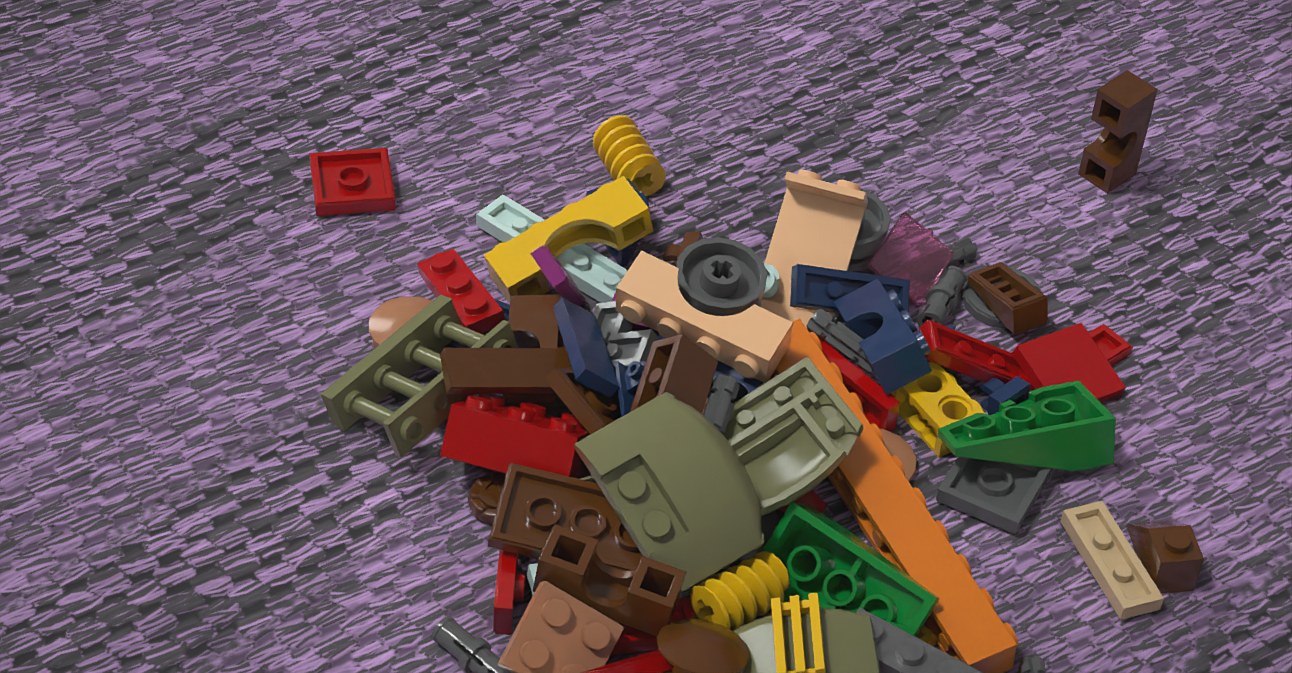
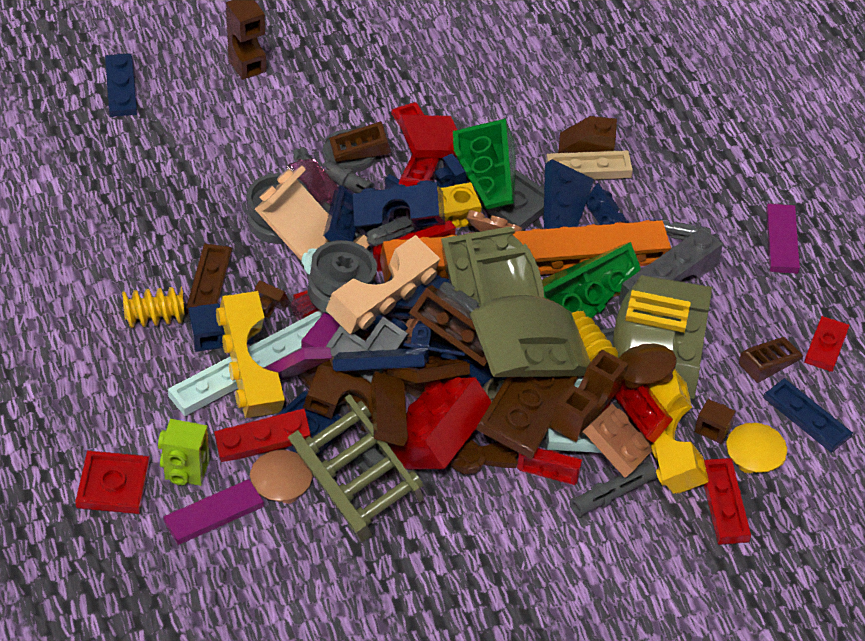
camera: 75 degrees left, 5 degrees up
(335, 276) = (213, 511): none -> magenta tile
(396, 217) = (184, 452): none -> lime brick
(706, 205) = (210, 275): none -> reddish brown tile
(917, 454) = (483, 224): none -> nougat dish
(999, 66) = (120, 85): none -> dark blue plate
(1020, 533) = (564, 195): none -> dark blue wing
(1039, 585) = (604, 207): none -> dark blue hinge

